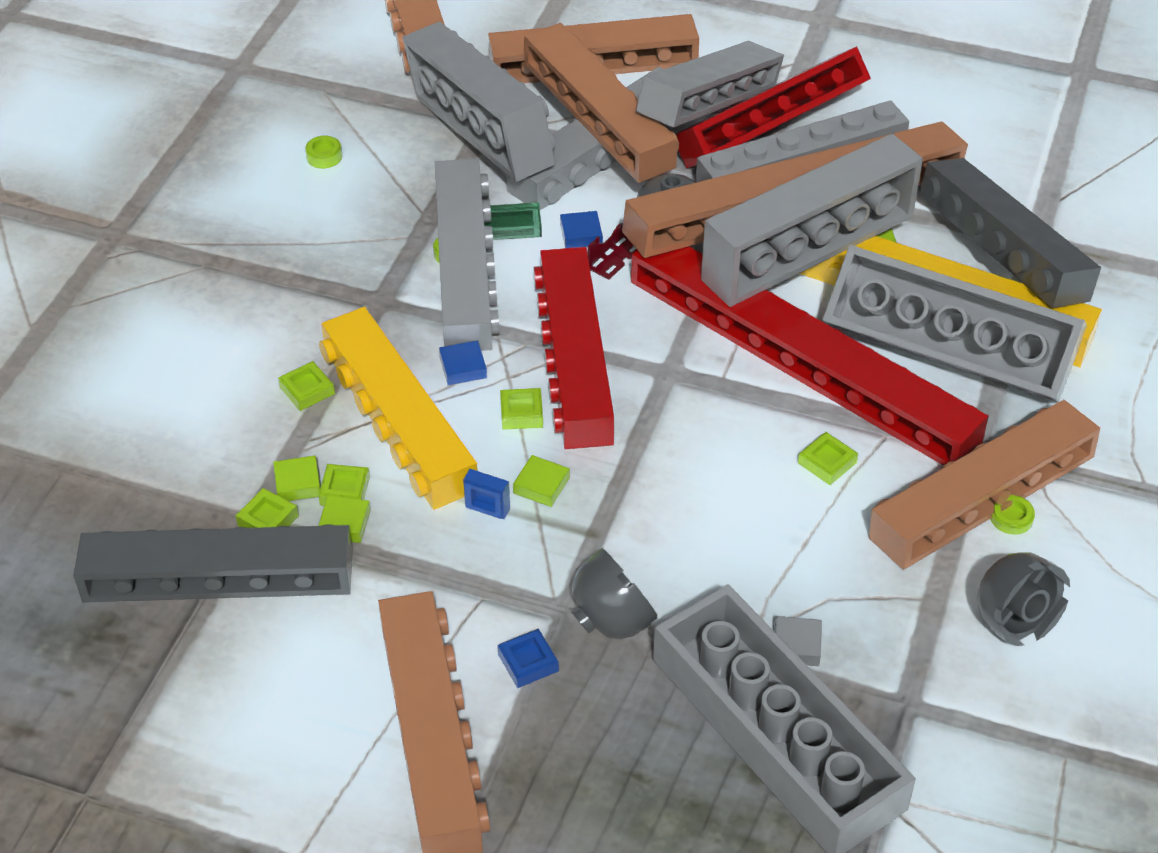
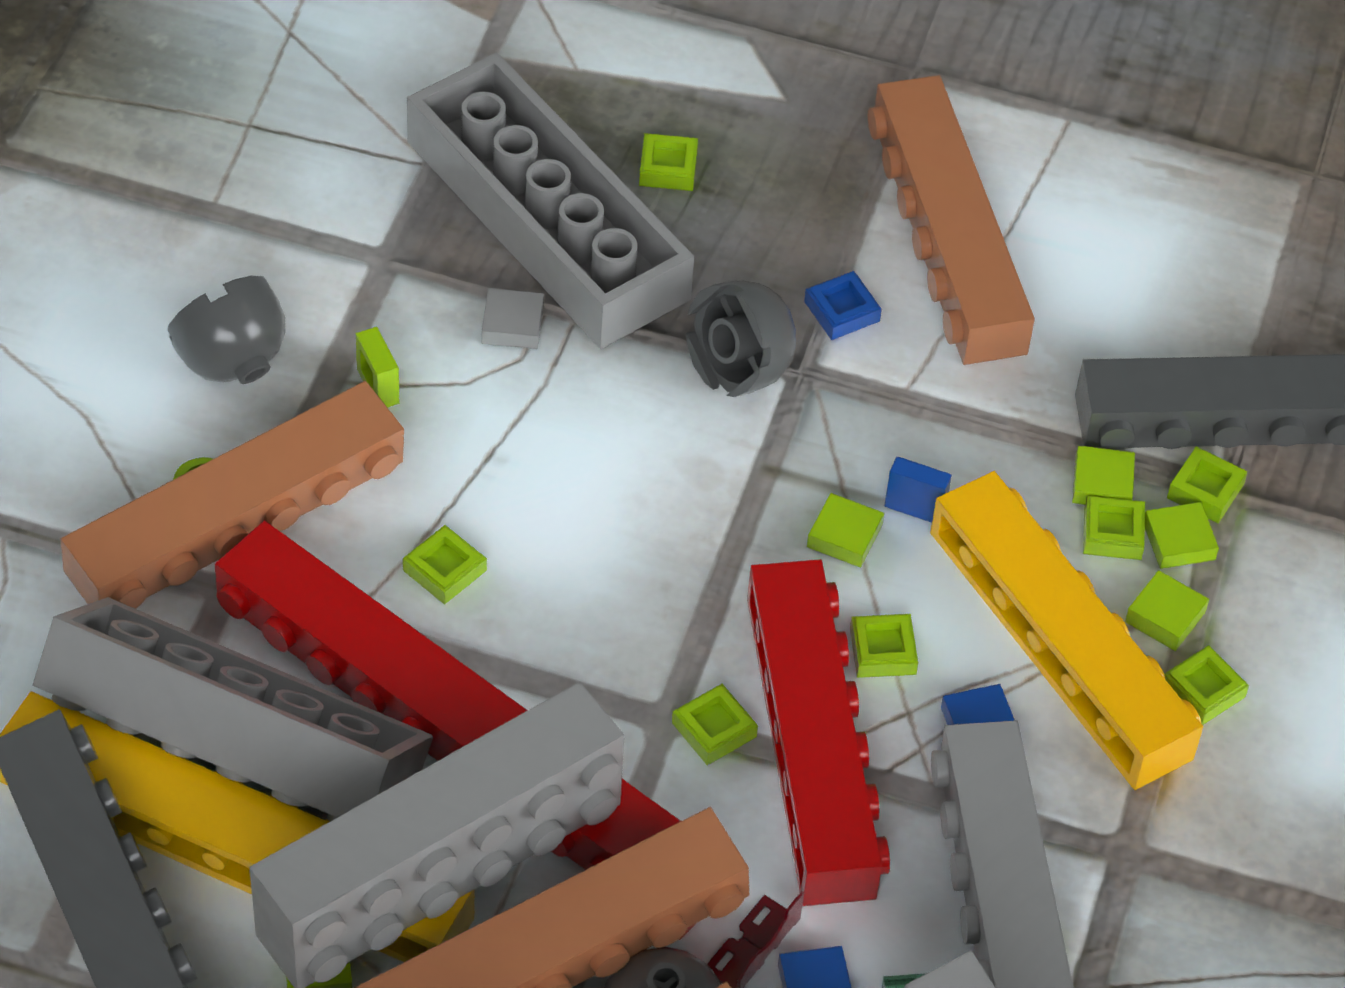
camera: 175 degrees right, 5 degrees up
(320, 430) = (1167, 610): none -> lime tile
(638, 362) = (714, 724): none -> lime tile
(672, 794) = (668, 162): none -> lime tile
(899, 582) = (377, 365): none -> lime tile

